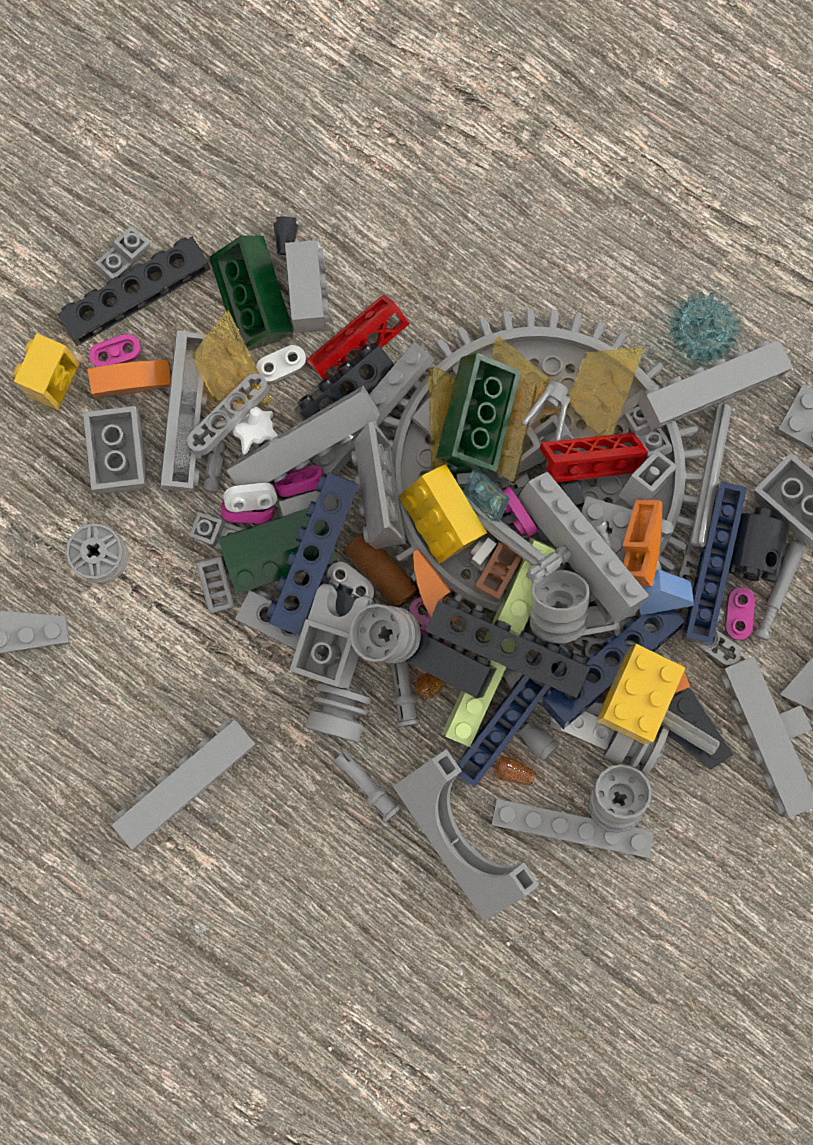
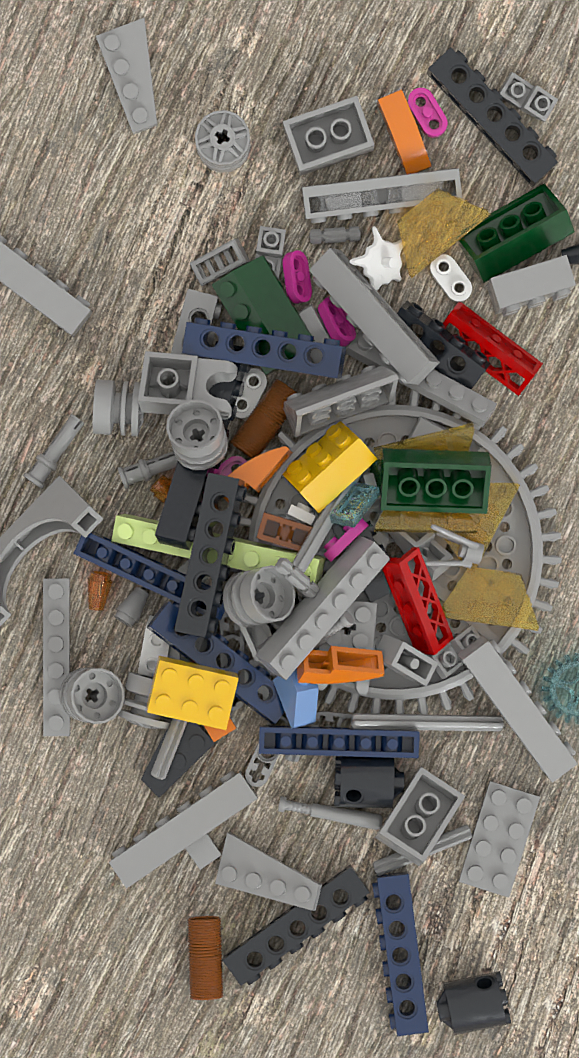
camera: 75 degrees right, 5 degrees up
(46, 371) = (389, 50): yellow brick -> none
(224, 411) = (387, 233): light grey beam -> none
(250, 497) = (308, 276): white plate -> none
(739, 613) = (298, 777): dark pink plate -> none

